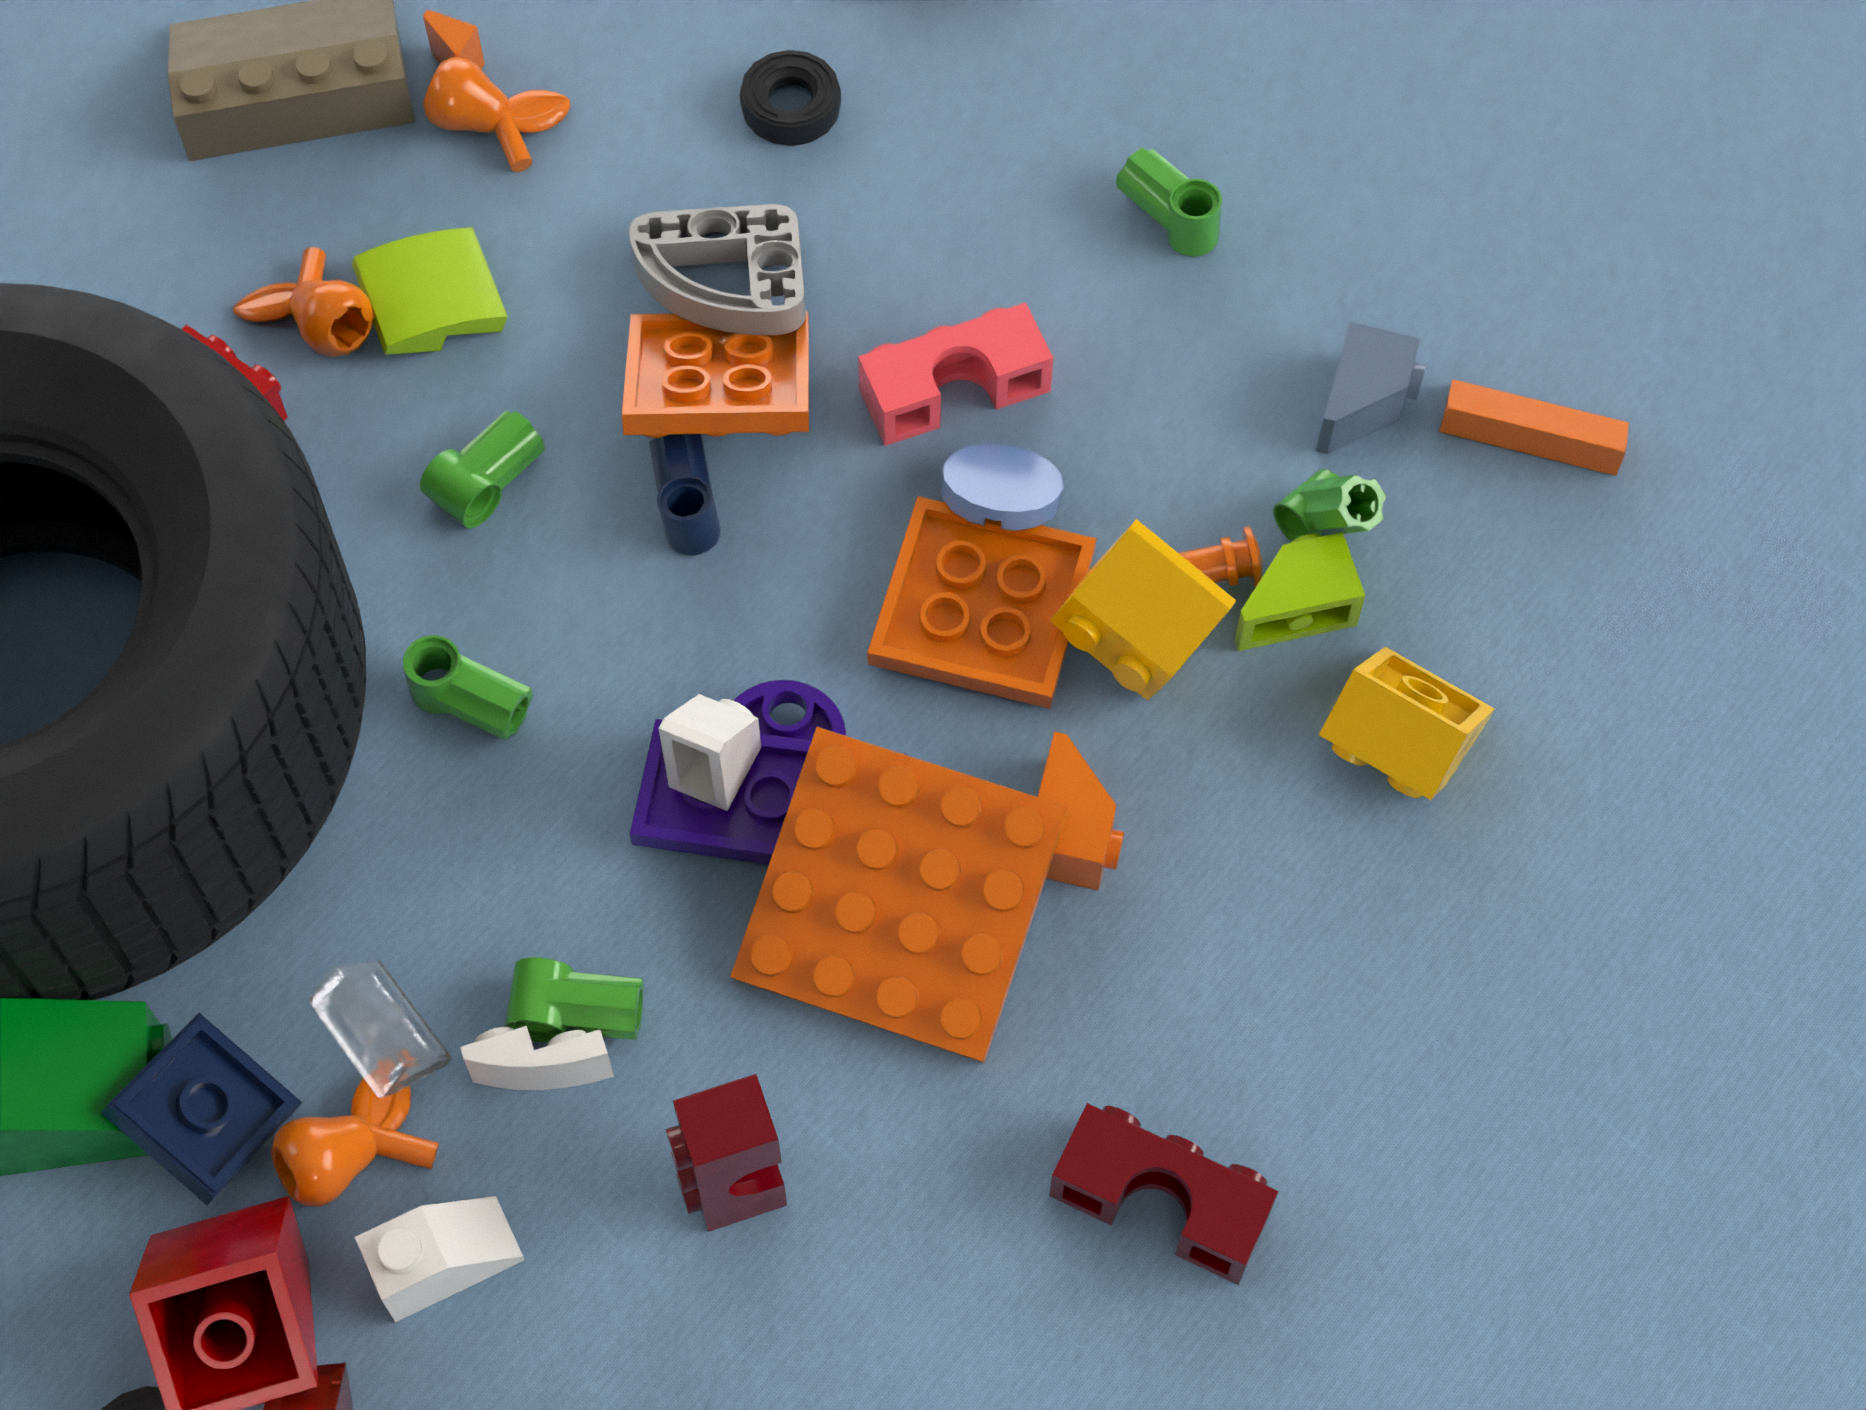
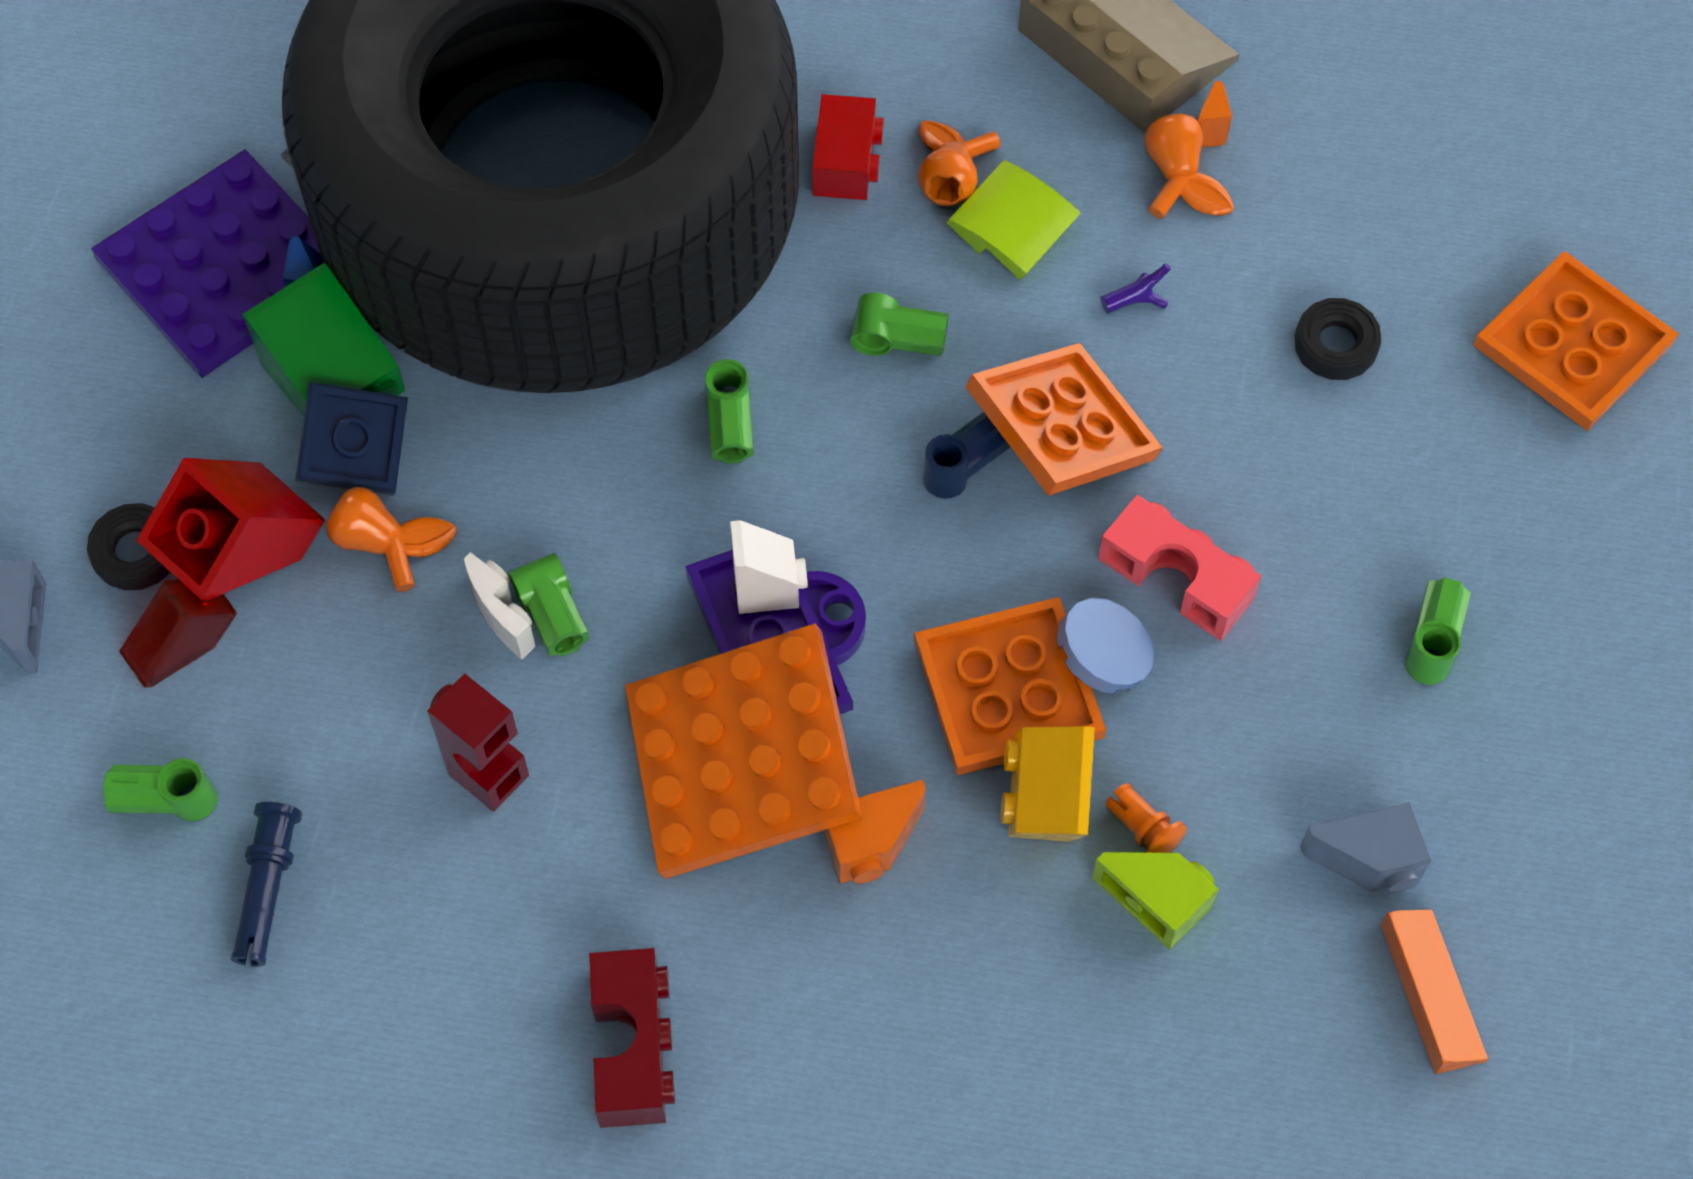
camera: 60 degrees right, 0 degrees up
(378, 1027) = (470, 504): clear slope -> none
(437, 1252) = (337, 623): white slope -> none
(604, 233) = (1137, 292): none -> dark purple bar
(755, 234) = (1202, 386): light grey beam -> none
(1330, 506) = (1238, 870): bright green piece -> none
(1404, 723) = (1101, 1018): yellow slope -> none

